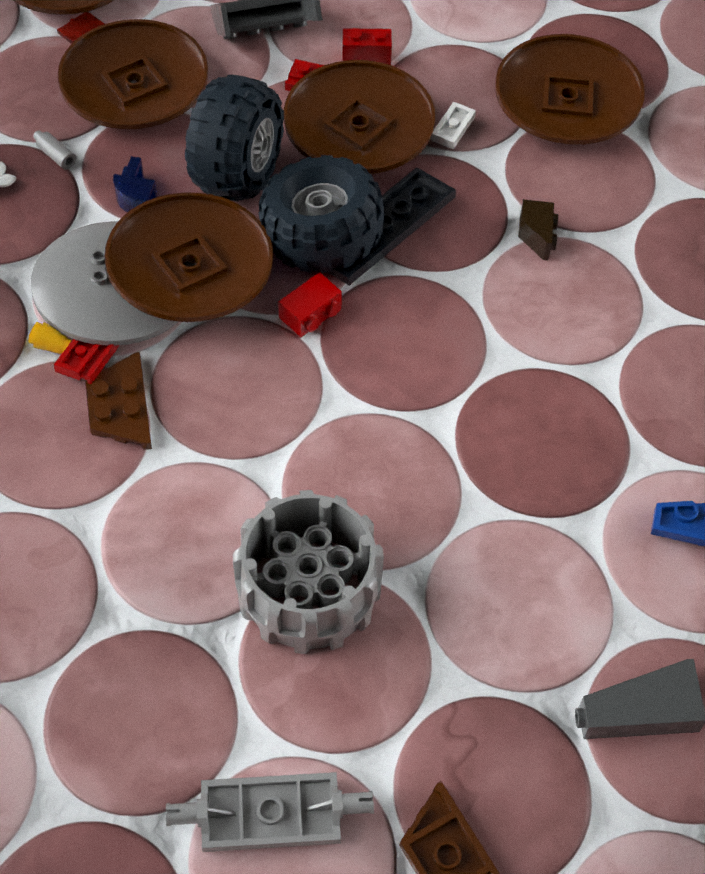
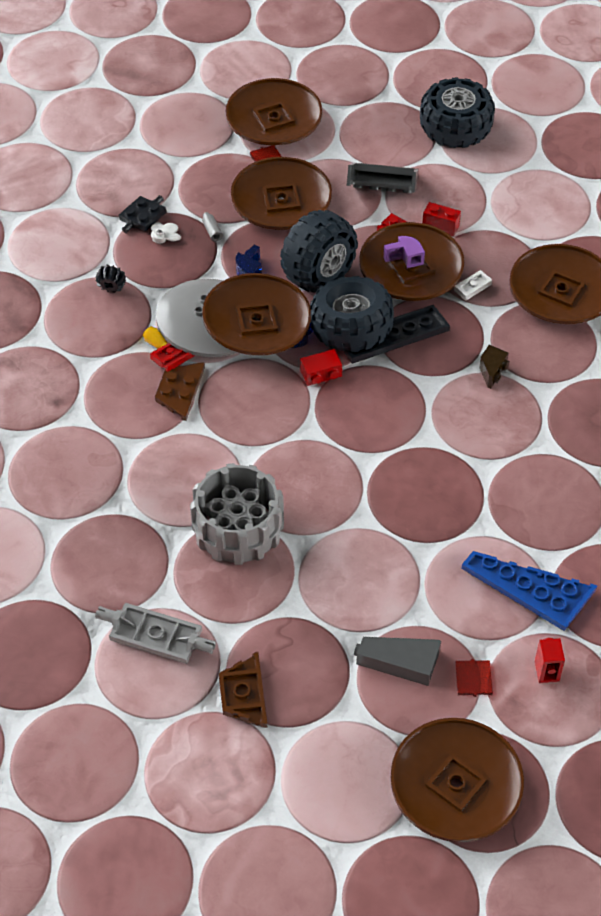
camera: 25 degrees right, 5 degrees down
(350, 100) = (406, 249): none -> medium lavender brick

